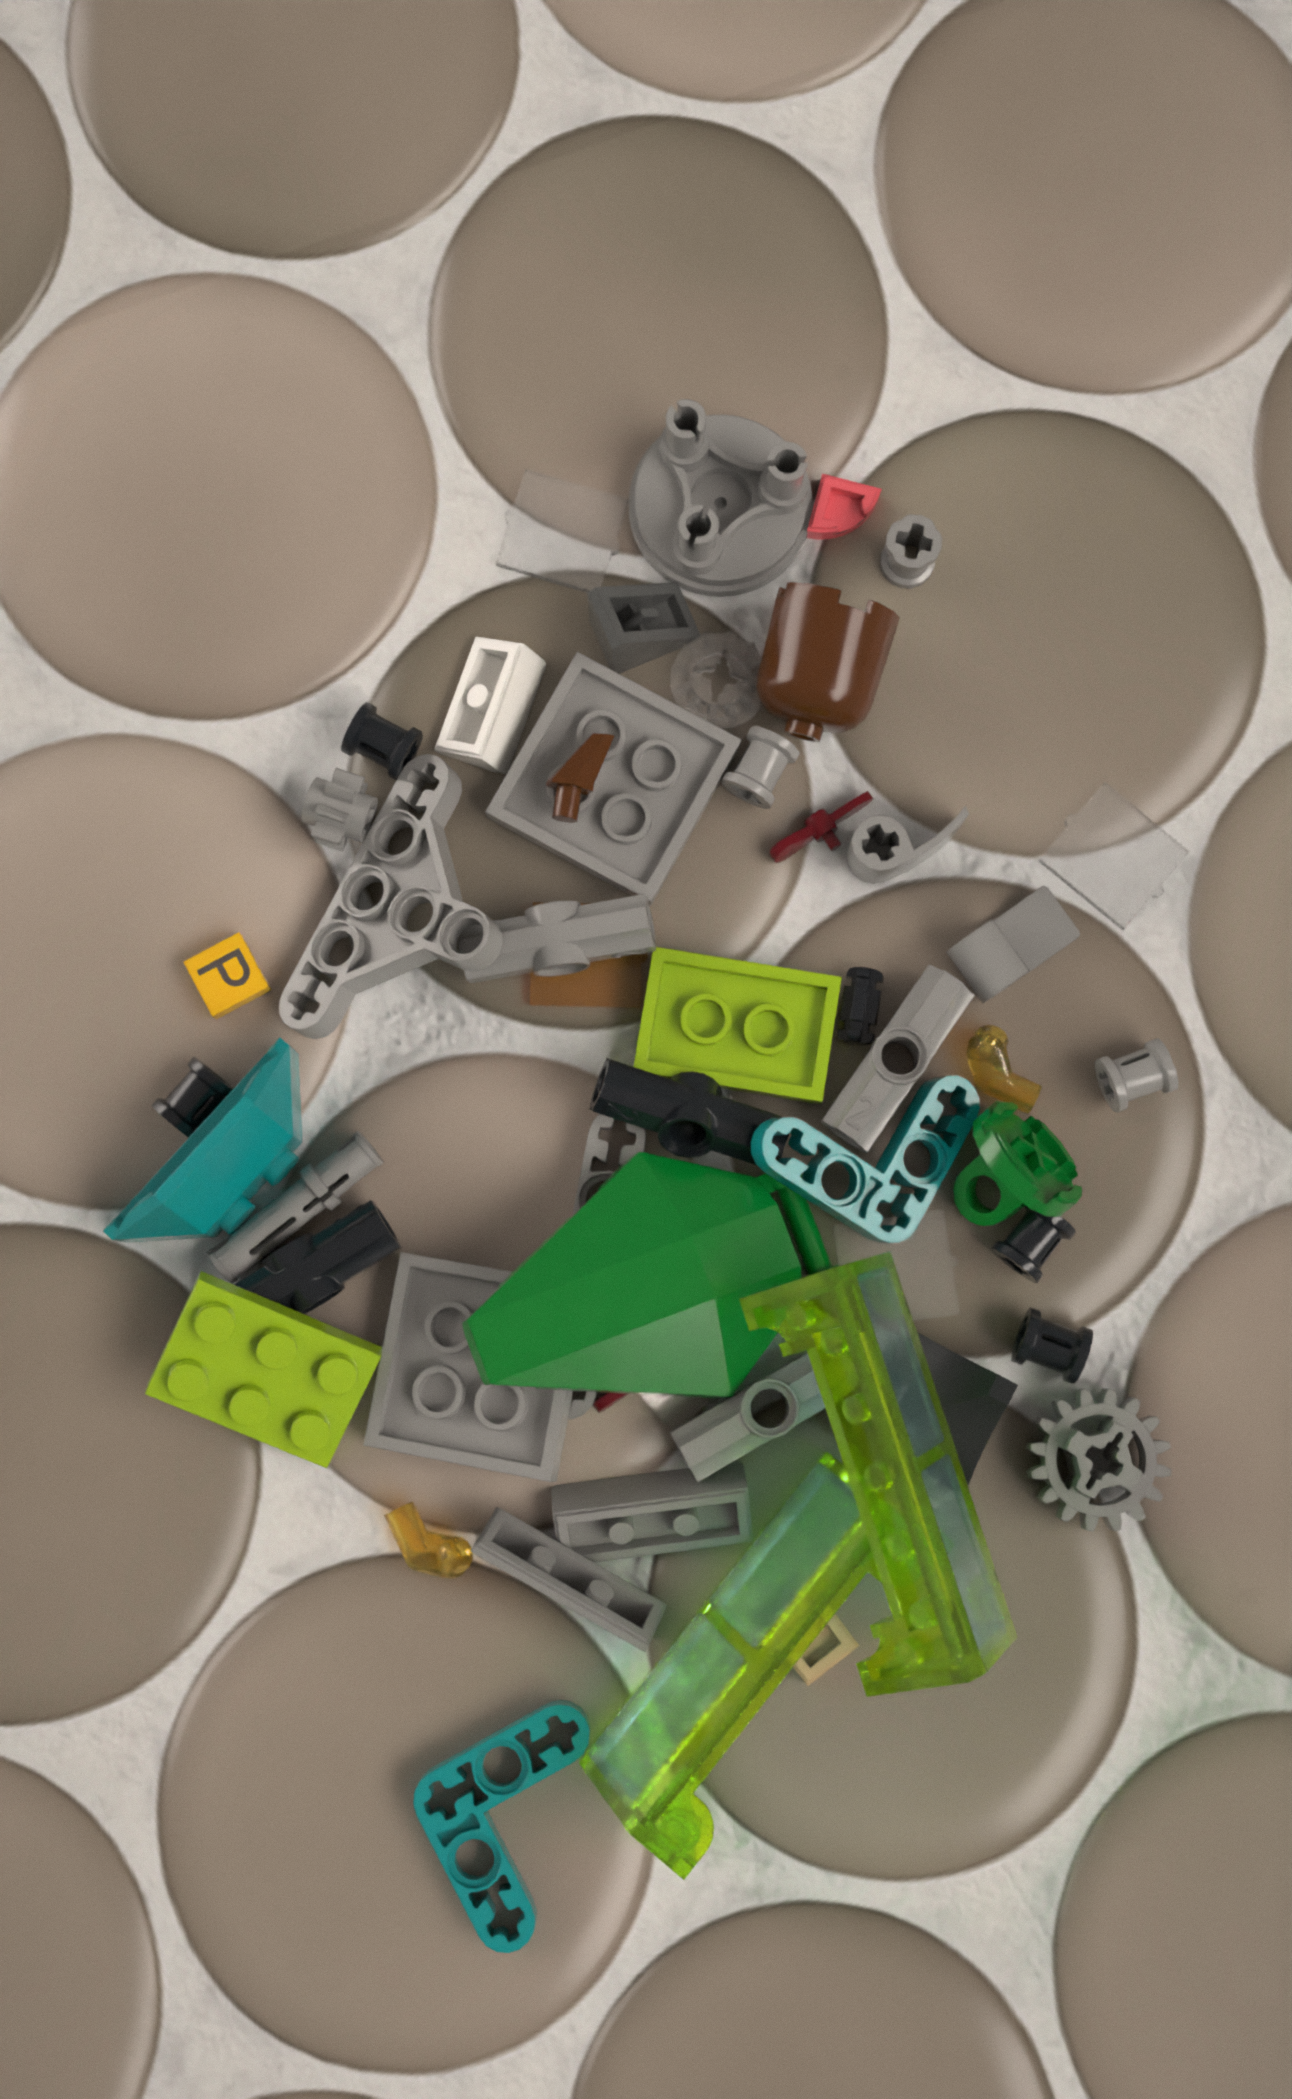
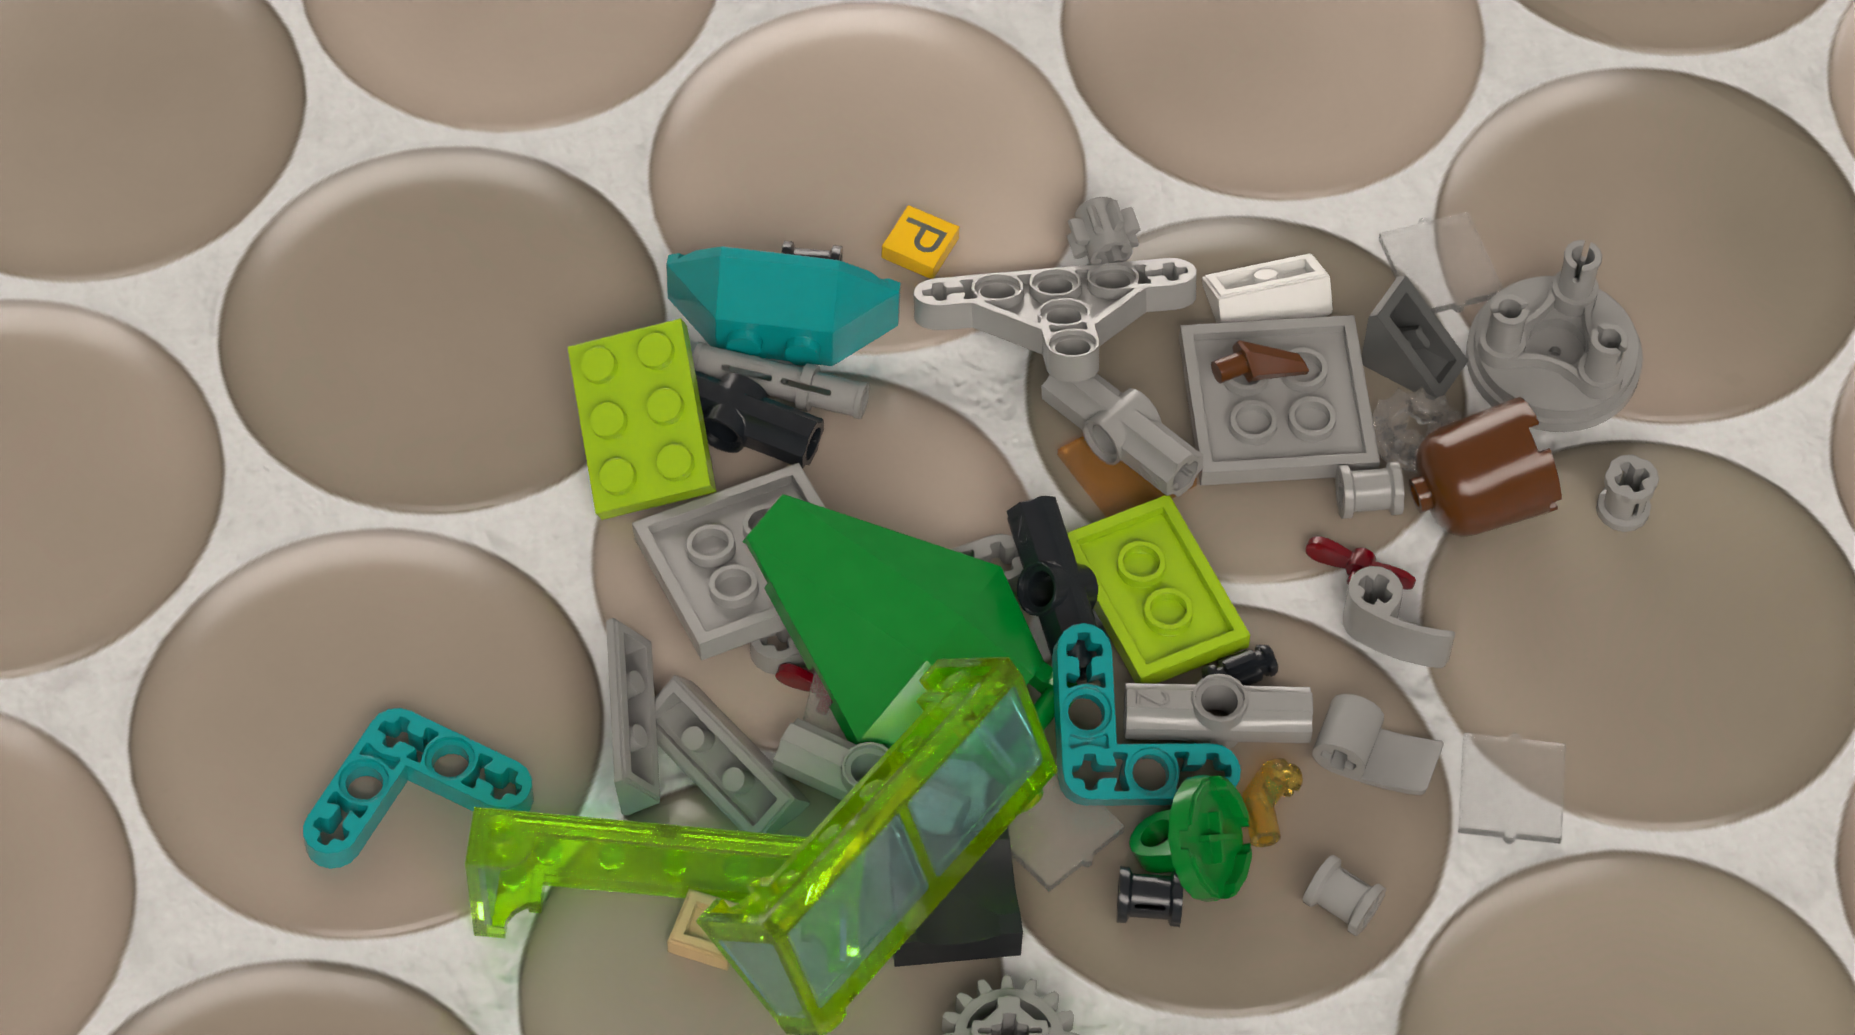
camera: 55 degrees right, 25 degrees down
(381, 740) = (1179, 230): black bush -> none
(426, 1550) = (580, 617): clear yellow arm -> none
(840, 507) = (1624, 432): coral tile -> none
(1052, 1345) = (1075, 959): black bush -> none

